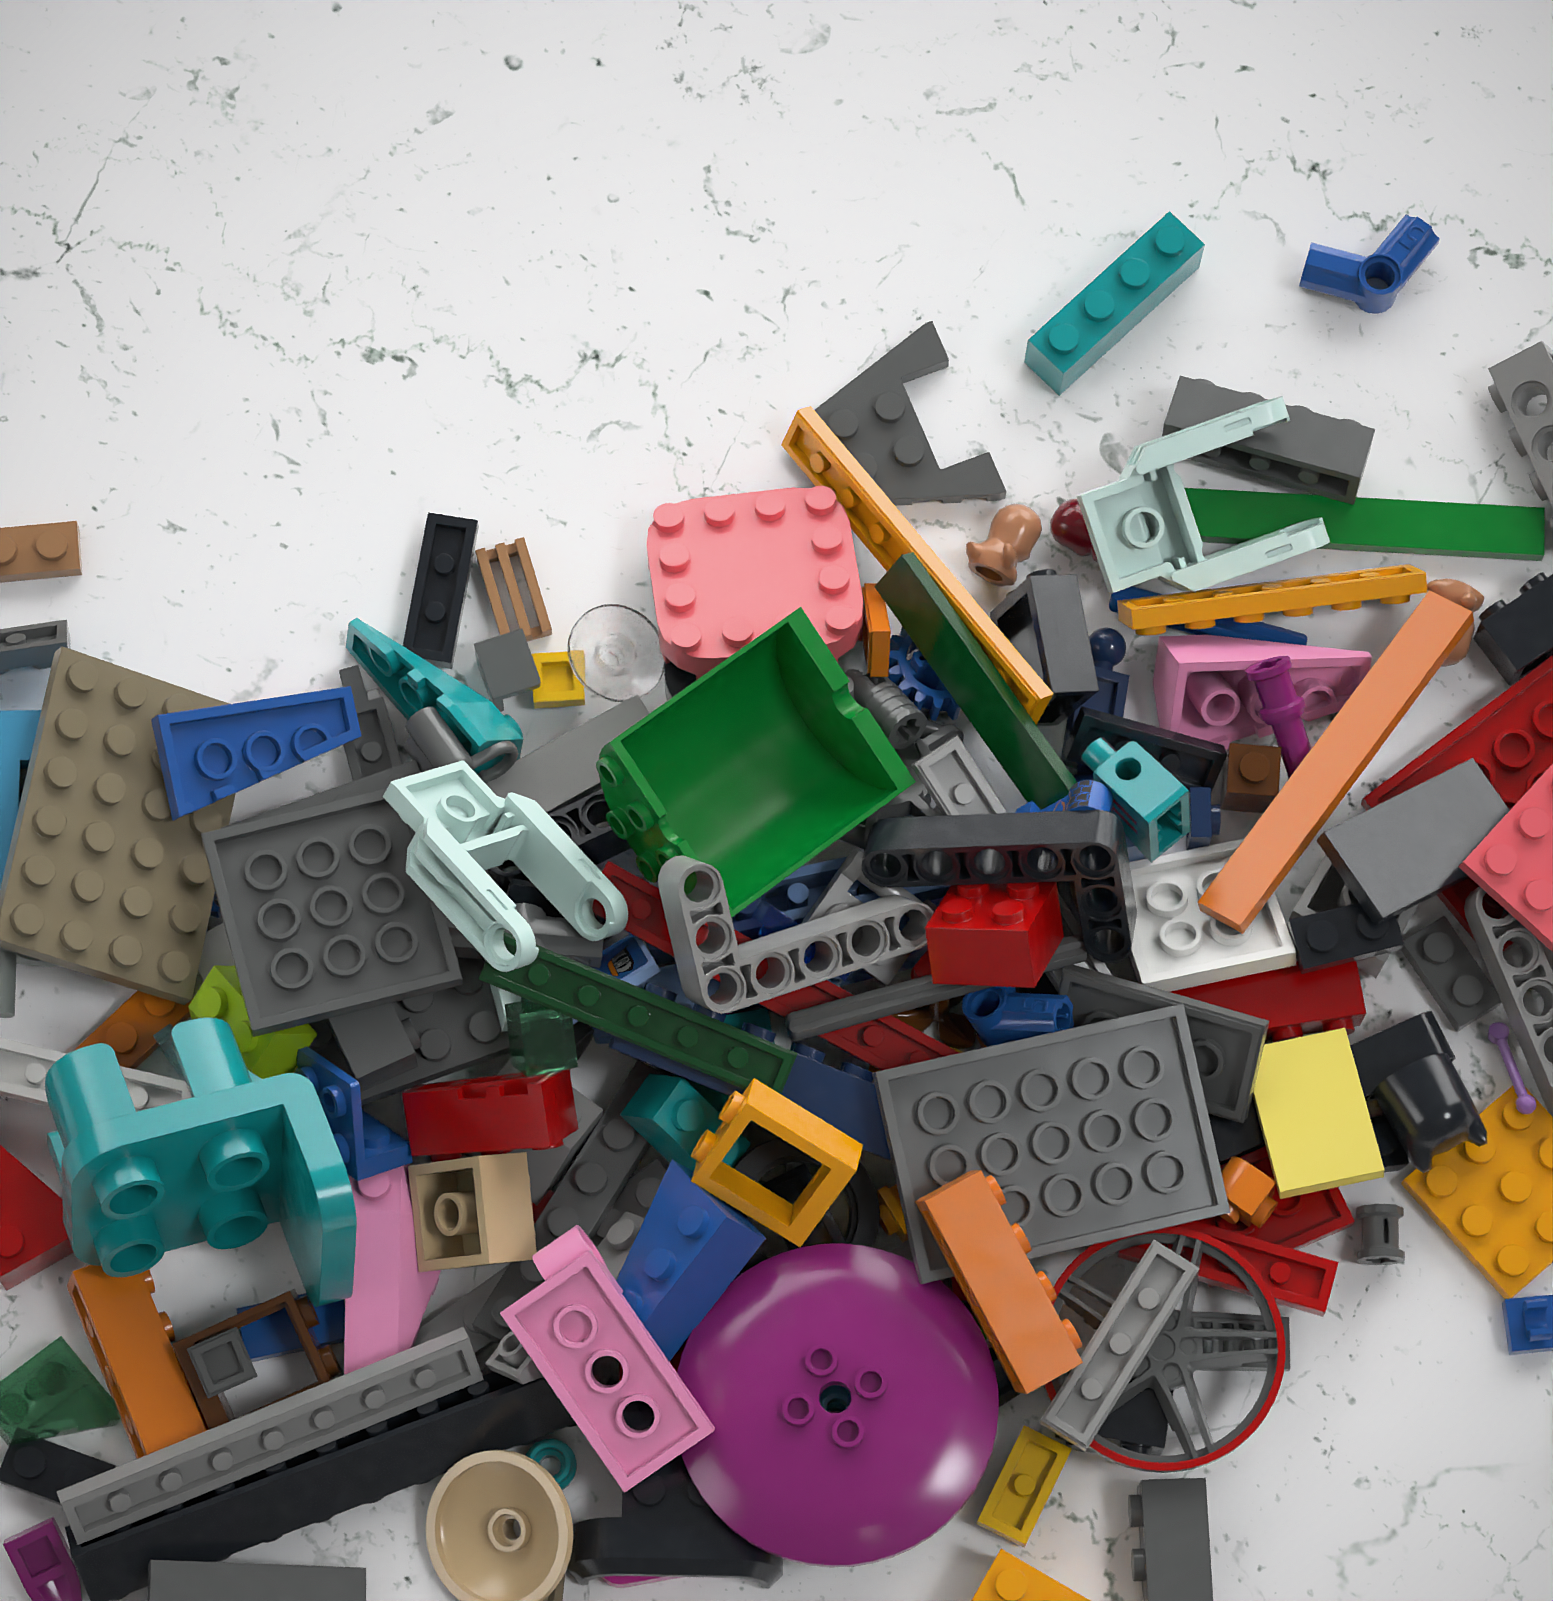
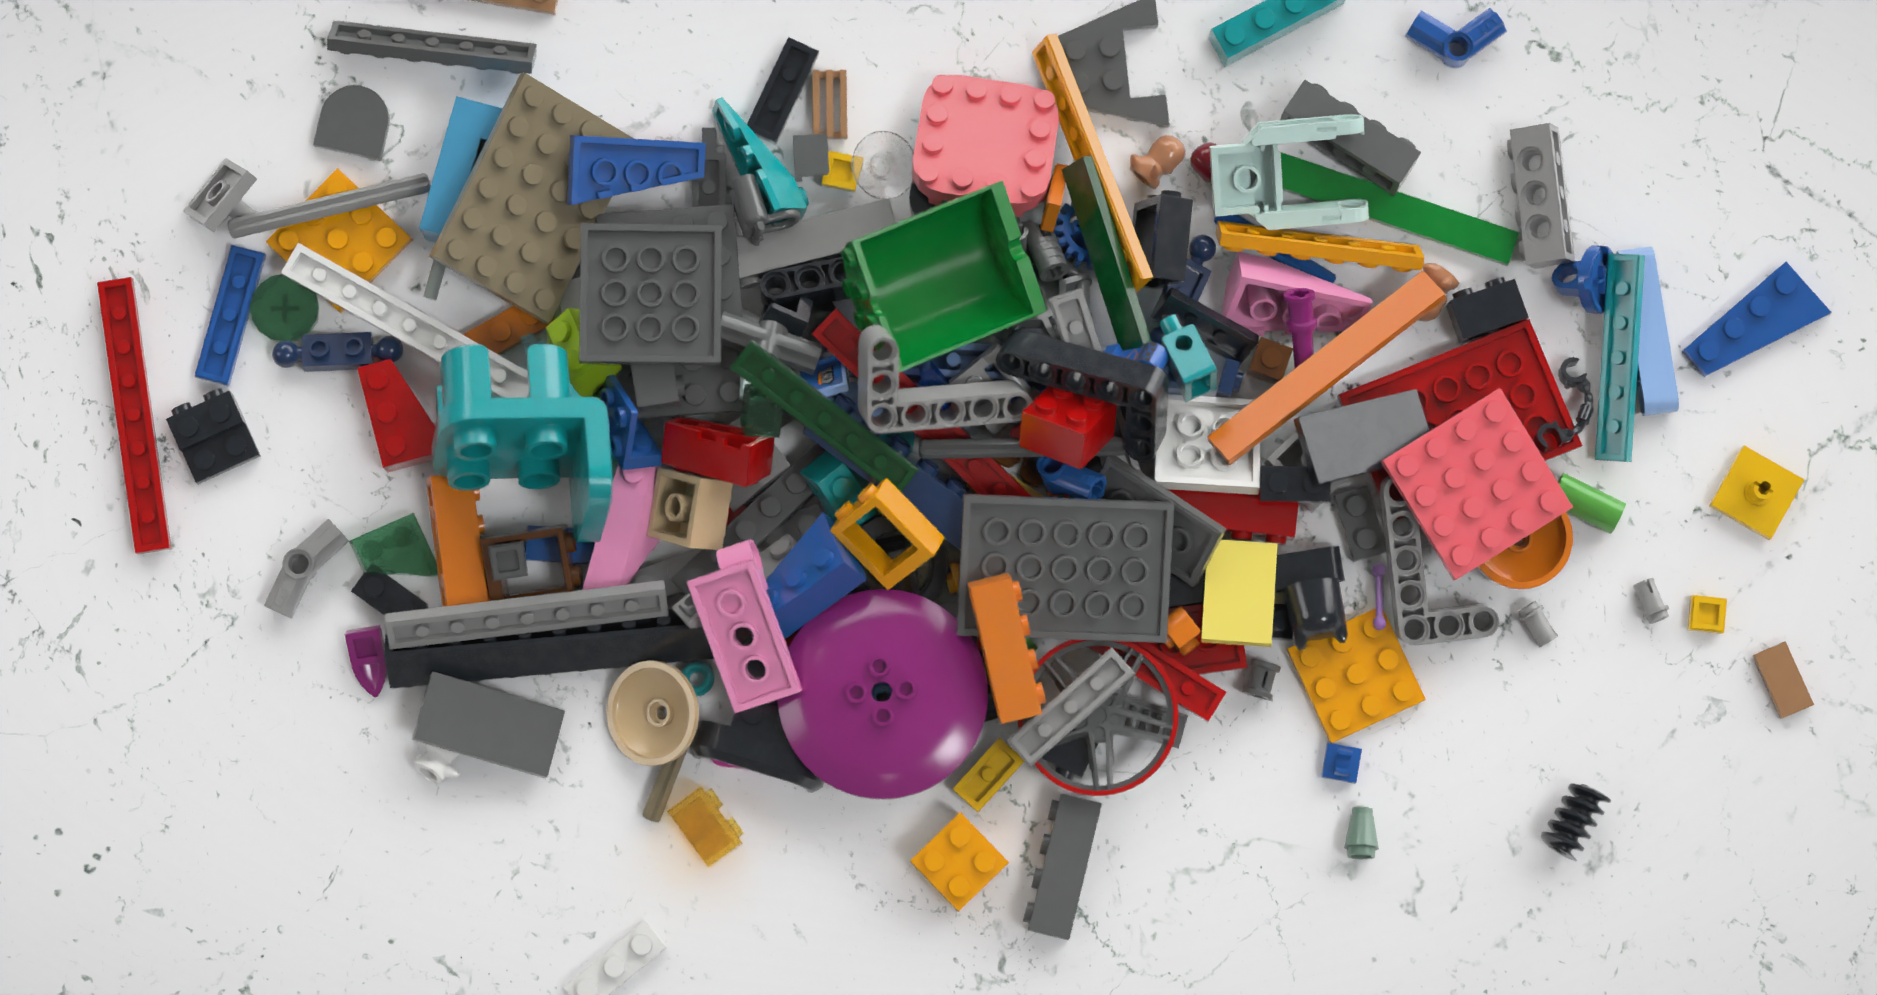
camera: 15 degrees right, 10 degrees up
(470, 830) = (753, 266): light aqua plate -> none

